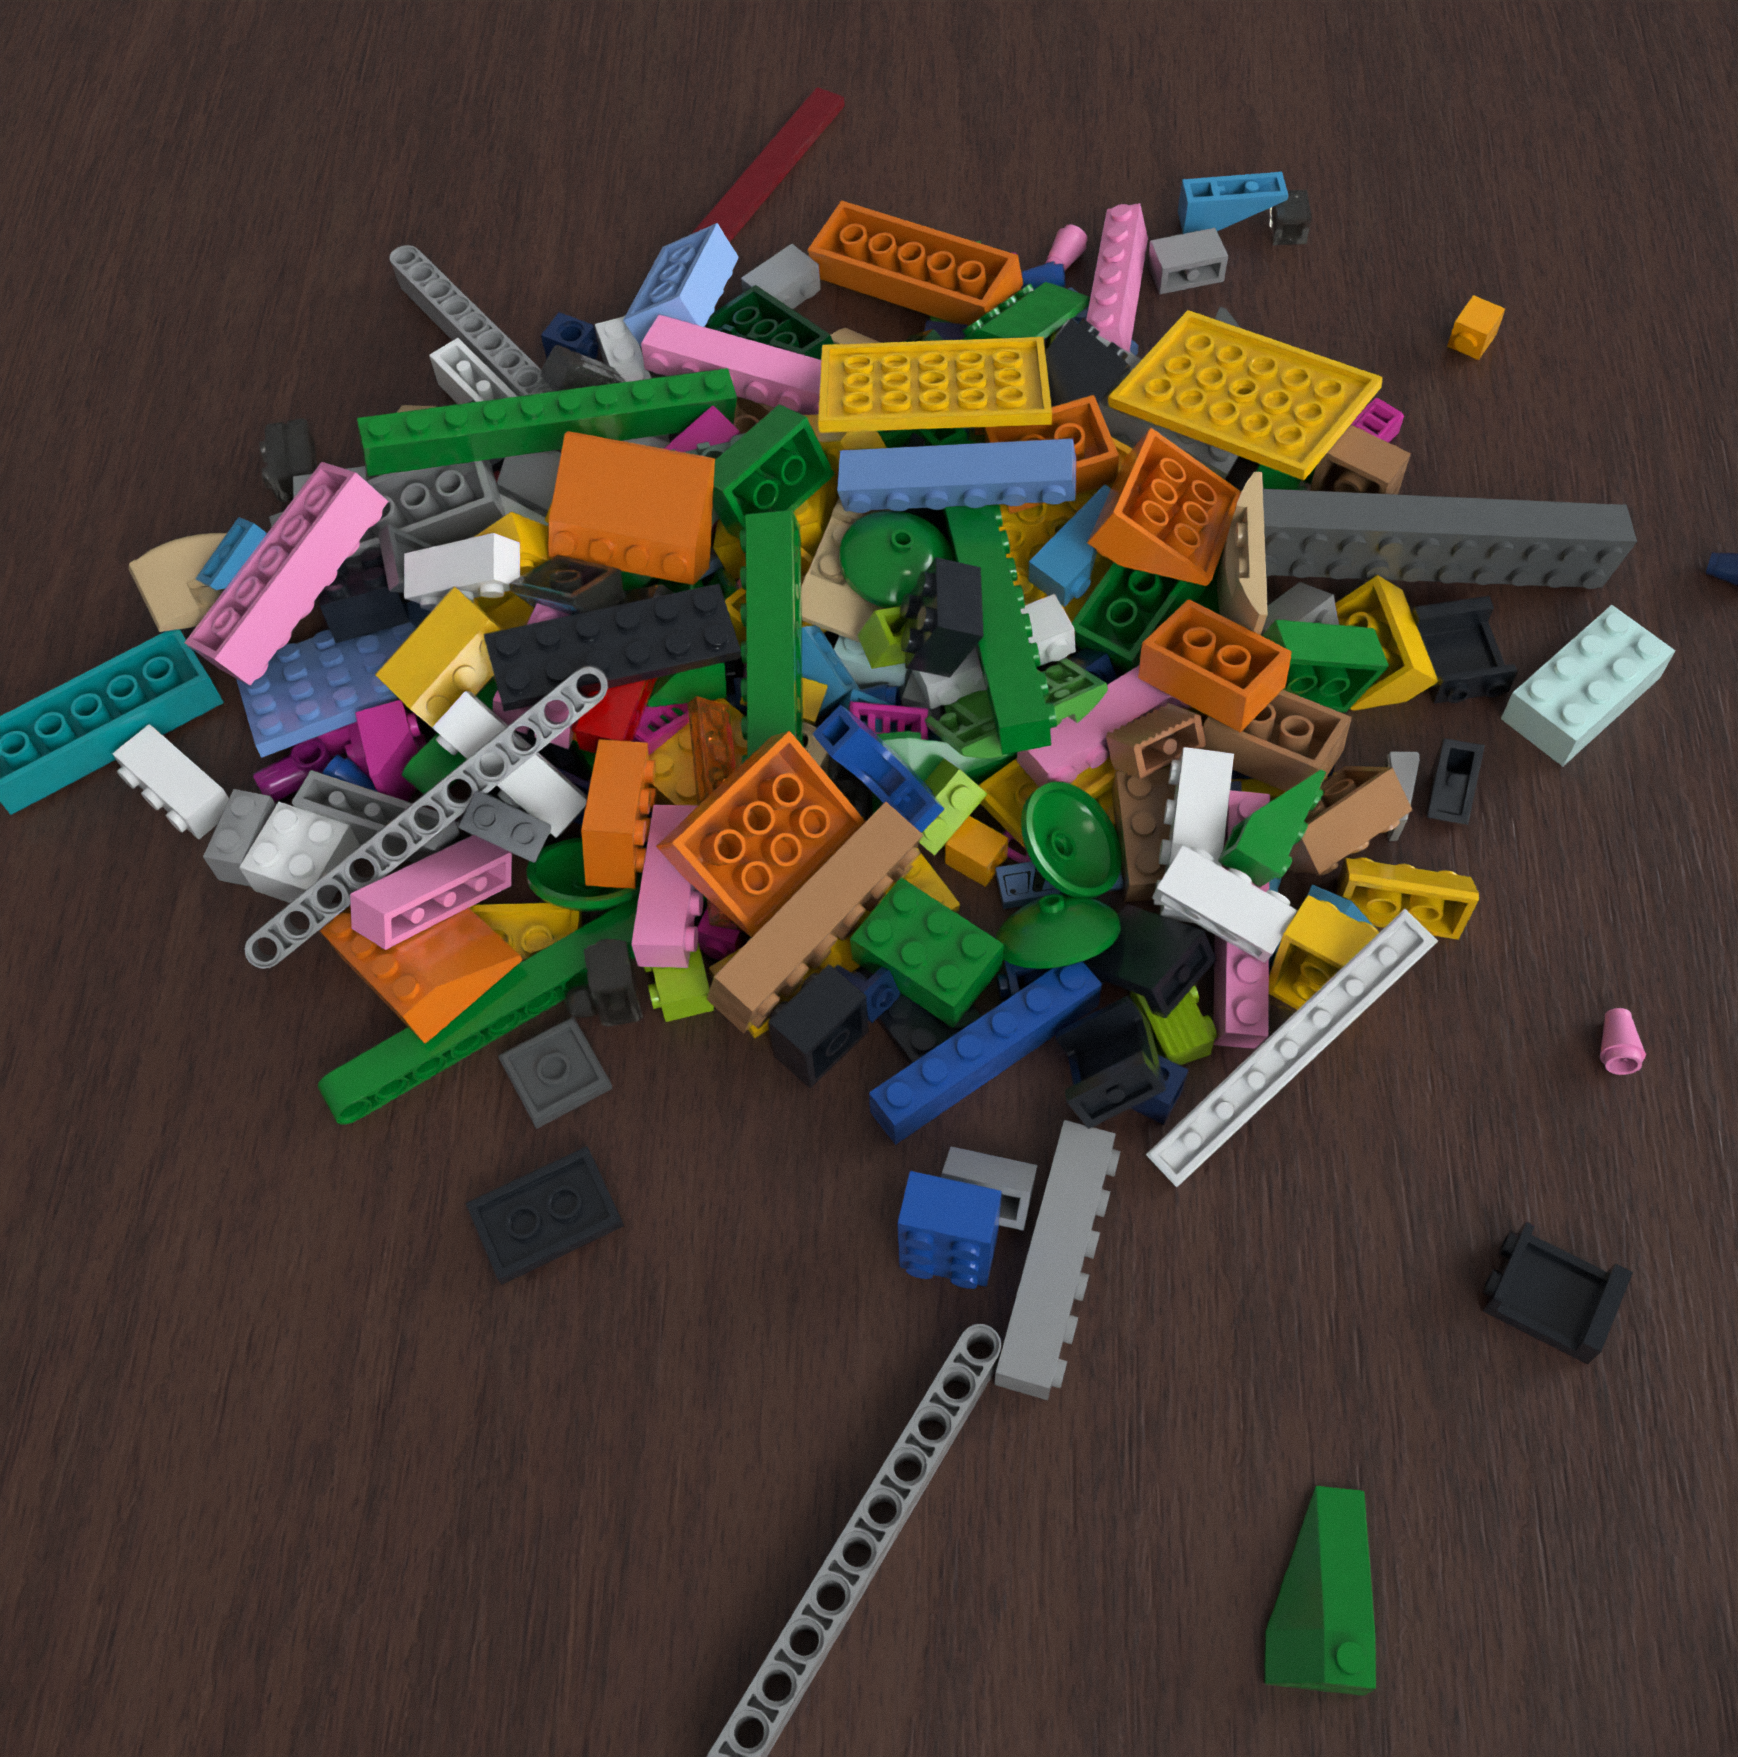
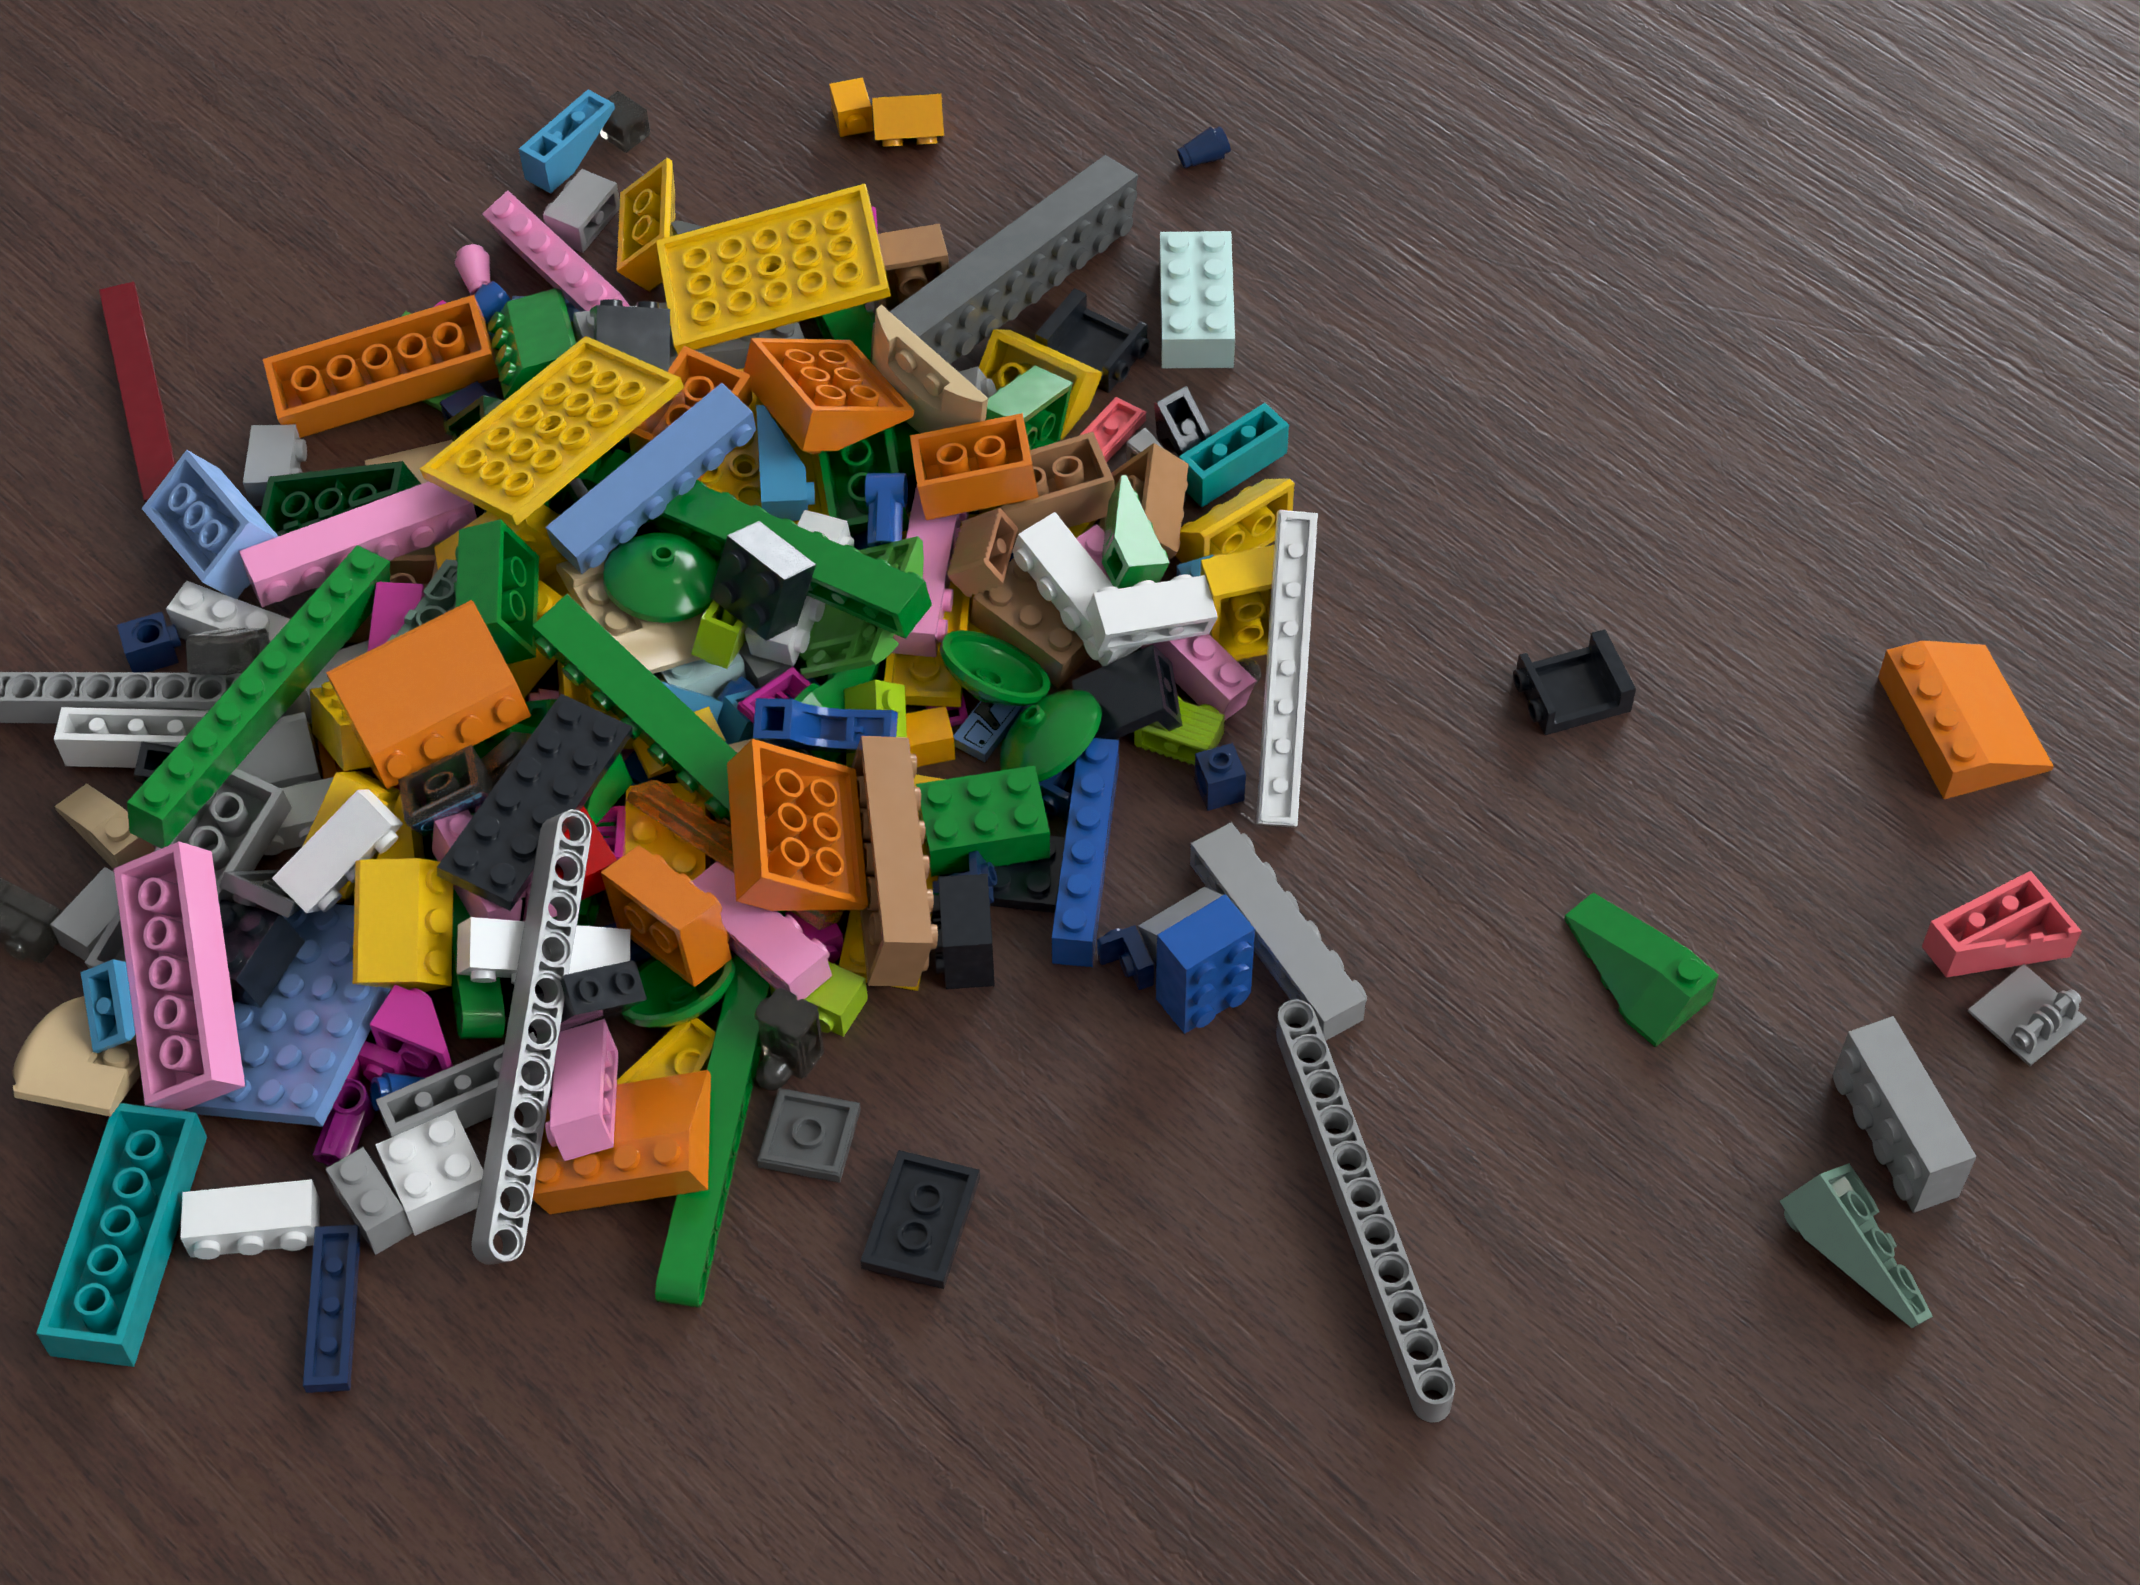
camera: 50 degrees left, 5 degrees down
(141, 892) = (332, 1309): none -> dark blue plate
(927, 1148) = (1130, 951): none -> dark blue bracket
(1110, 1062) = (1180, 780): black panel -> none
(1121, 636) = (885, 497): none -> blue piece
(1231, 287) = (644, 218): none -> yellow slope
(1391, 733) = (1116, 426): none -> coral tile
(1471, 835) = (1235, 453): none -> teal brick
(1510, 366) = (908, 118): none -> light orange slope
(1621, 1044) = (1454, 507): bright pink cone -> none

